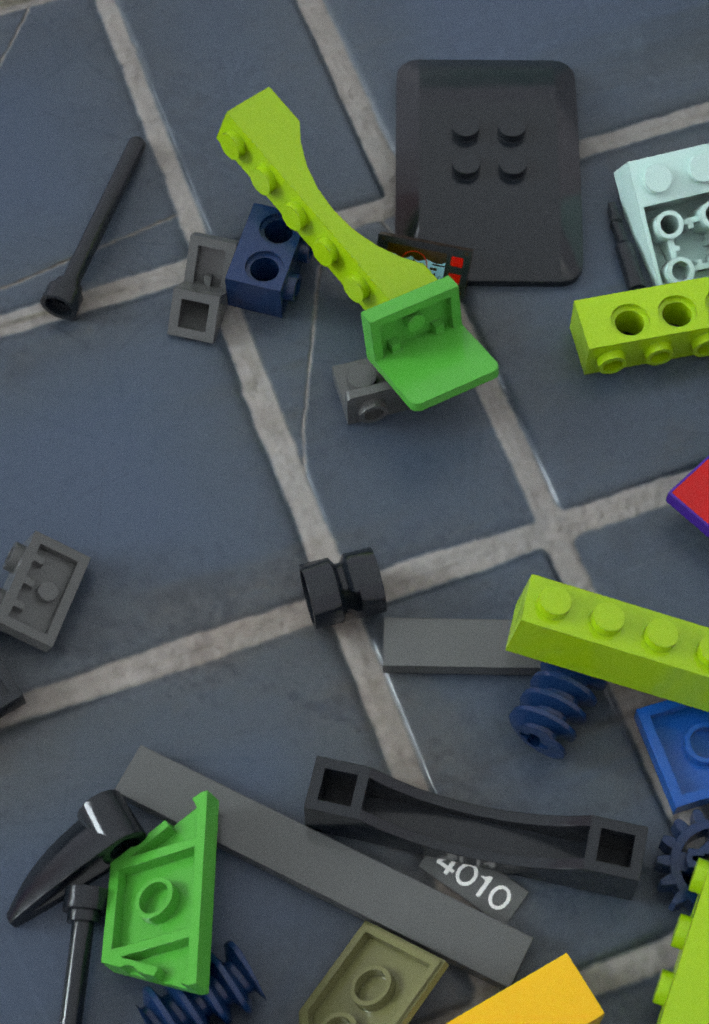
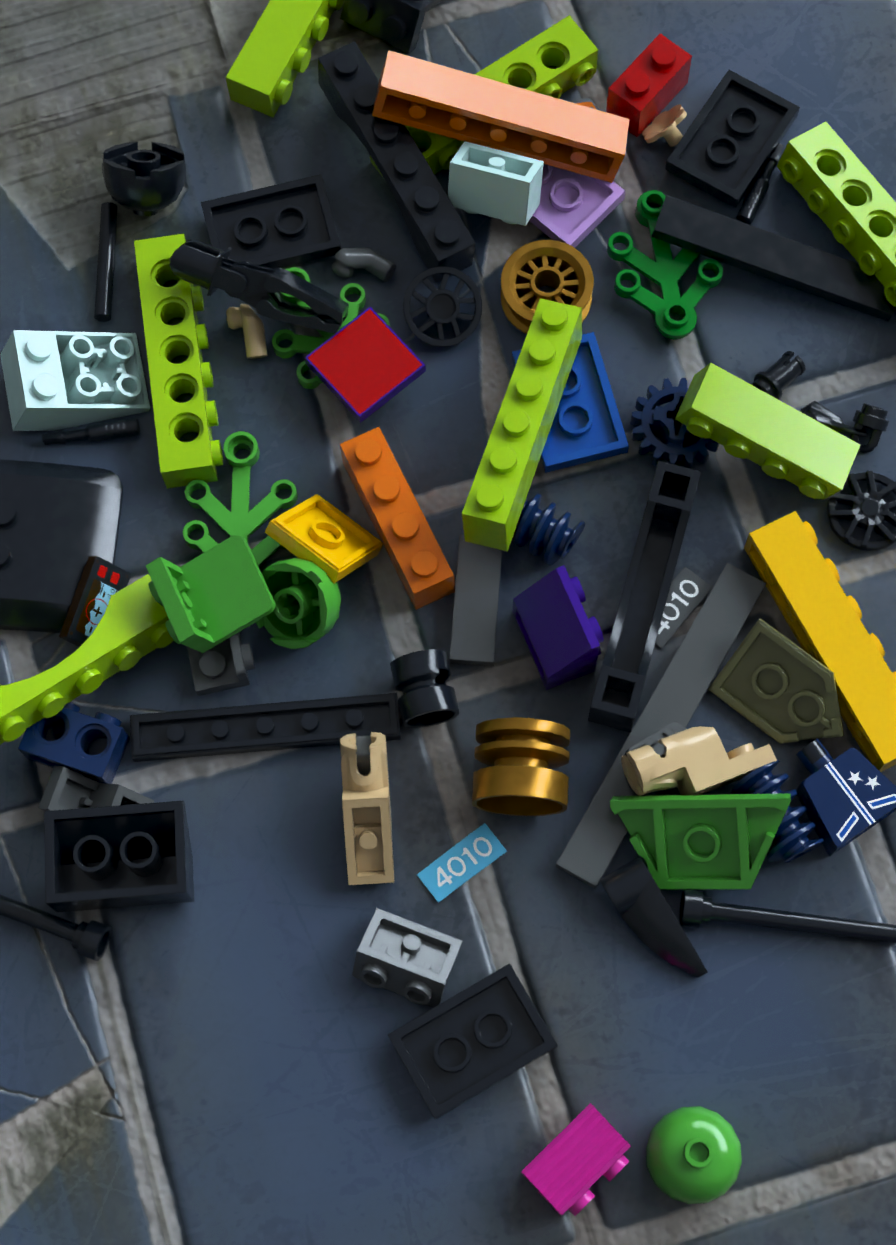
camera: 85 degrees left, 10 degrees up
(140, 303) = (118, 856): none -> black slope
(148, 650) = (461, 862): none -> medium azure sticker
(198, 533) = (366, 809): none -> tan plate
(245, 688) = (522, 765): none -> pearl gold wheel
(265, 885) = (689, 760): none -> tan plate
(297, 439) = (262, 727): none -> black tile
(423, 728) = (557, 628): none -> dark purple slope
(436, 448) = (304, 603): none -> bright green cylinder
(514, 470) = (324, 536): none -> yellow tile
(535, 396) = (240, 519): none -> bright green plant
(551, 546) = (397, 518): none -> orange brick

